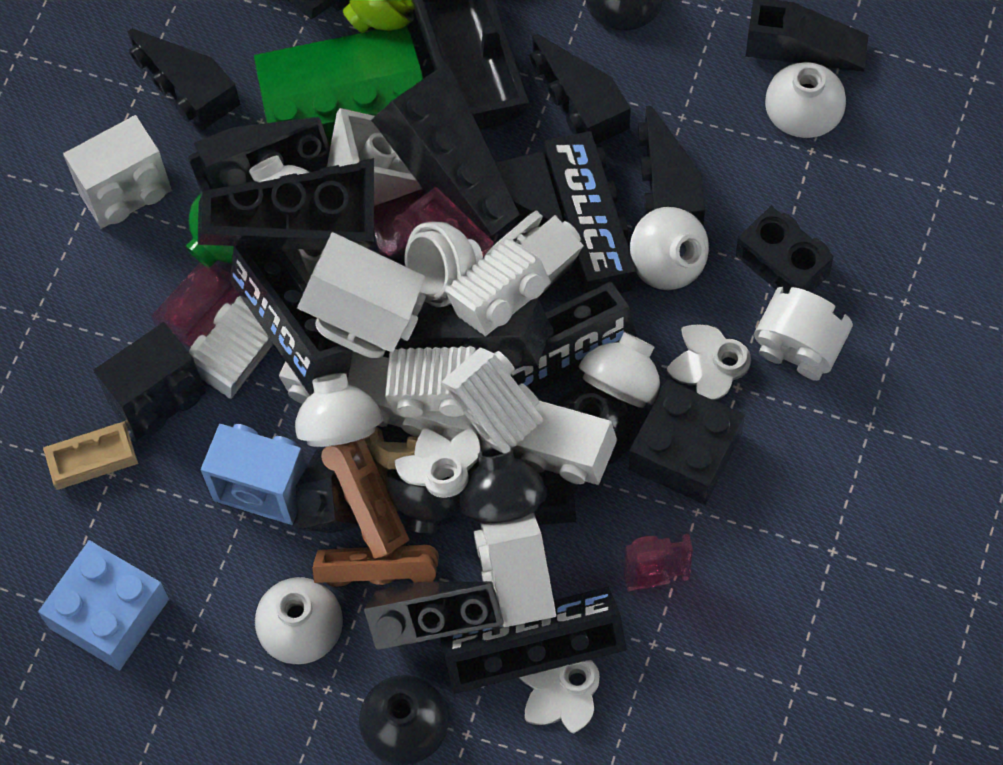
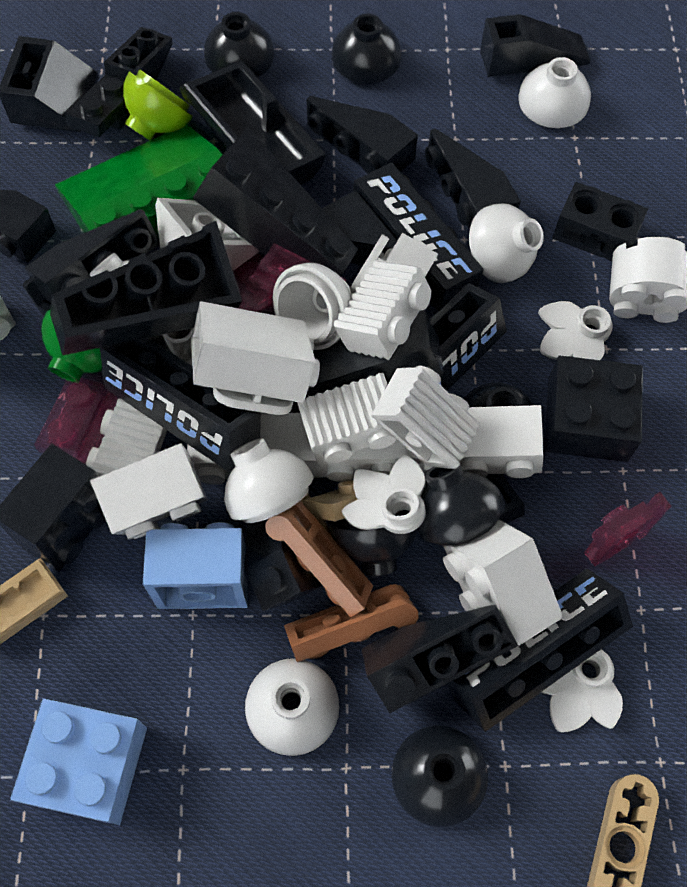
camera: 25 degrees left, 0 degrees up
(235, 392) = (150, 491): none -> white brick
(623, 370) = (513, 359): white piece -> none

